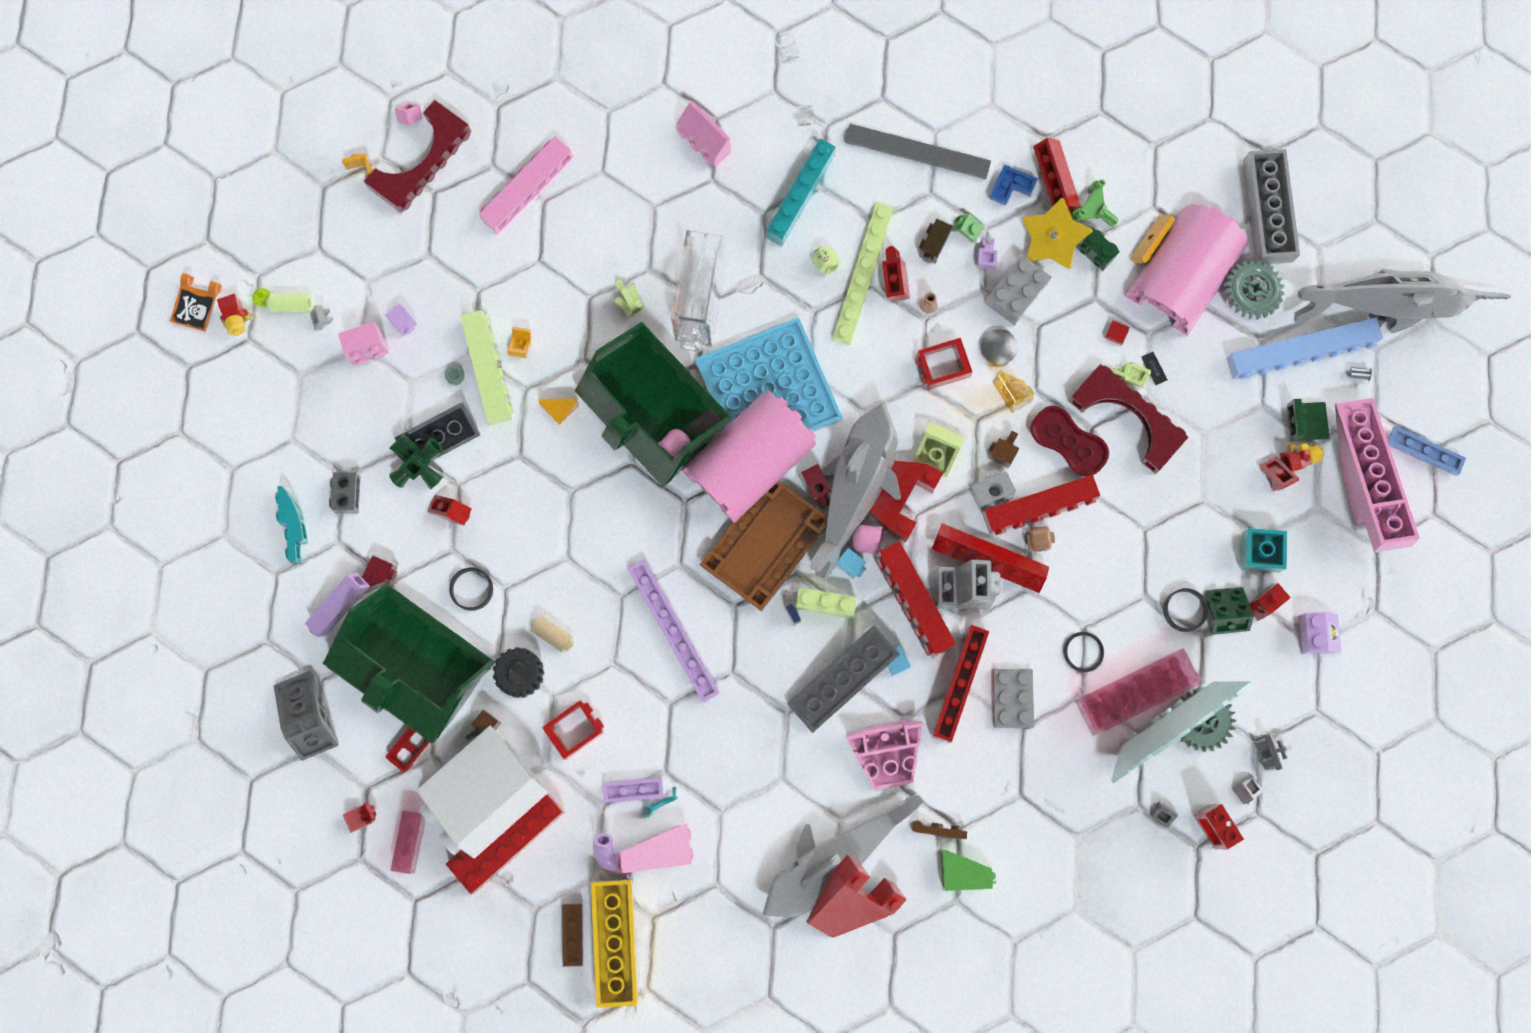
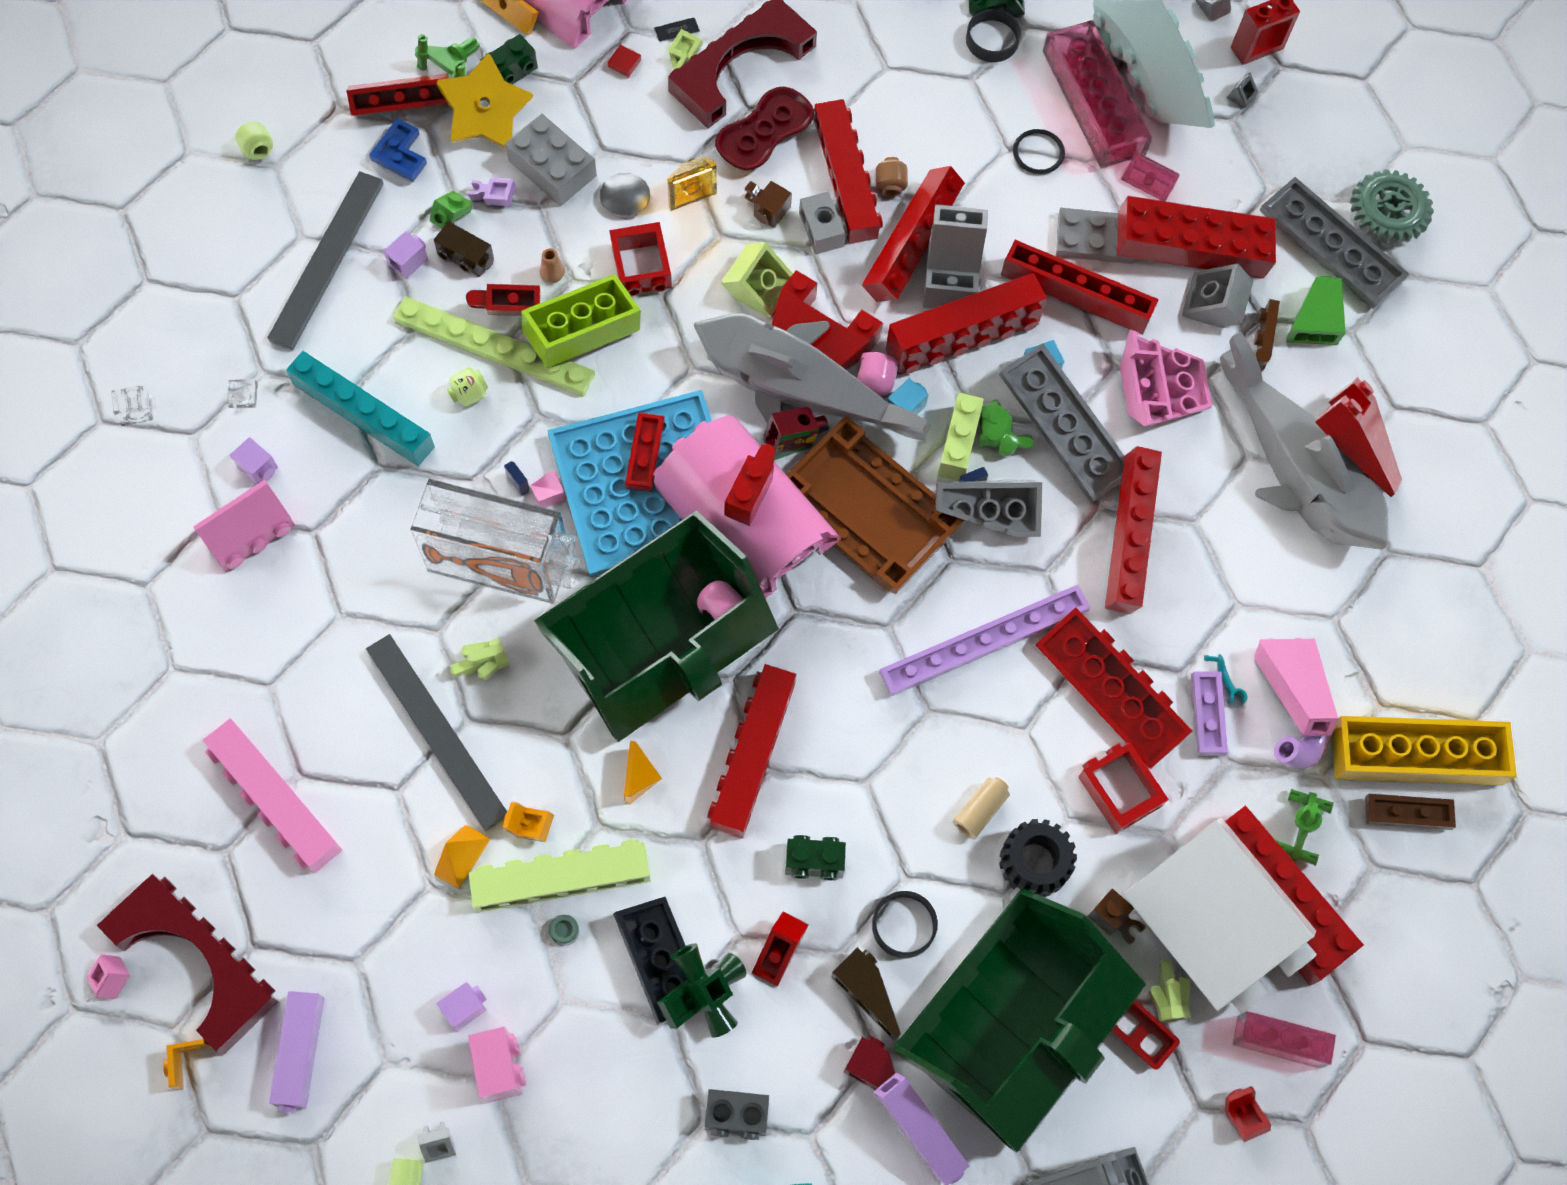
camera: 90 degrees left, 10 degrees down
(369, 228) = (296, 1051): none -> lavender brick
(427, 566) = (865, 985): none -> dark brown slope
(427, 766) = (1171, 996): none -> yellowish green rock
(498, 306) = (460, 855): none -> light orange slope
(508, 530) = (815, 858): none -> dark green brick
(555, 857) = (1307, 820): none -> bright green axle
(578, 278) = (437, 732): none -> dark grey tile
(580, 480) = (753, 751): none -> red brick
(645, 722) = (1114, 687): none -> red plate
(747, 449) = (751, 486): none -> red brick
(754, 132) = (254, 461): none -> lavender brick
(755, 324) = (548, 490): none -> bright pink slope
(759, 303) = (517, 478): none -> dark blue tile
(762, 730) = (1133, 530): none -> red brick
(772, 629) = (997, 504): none -> light grey wedge
(788, 383) = (644, 452): none -> red tile
(835, 630) = (997, 430): none -> bright green animal
(882, 326) = (580, 320): none -> lime brick
(926, 203) = (406, 254): none -> lavender brick
(969, 793) = (1218, 296): none -> light grey slope
(1004, 85) = (254, 140): none -> yellowish green head
(1015, 773) = (1195, 236): none -> red brick
(1031, 886) = (1334, 242): none -> flat silver plate
(1066, 913) = (1387, 213): none -> sand green gear
(1070, 739) = (1150, 176): none -> clear pink slope

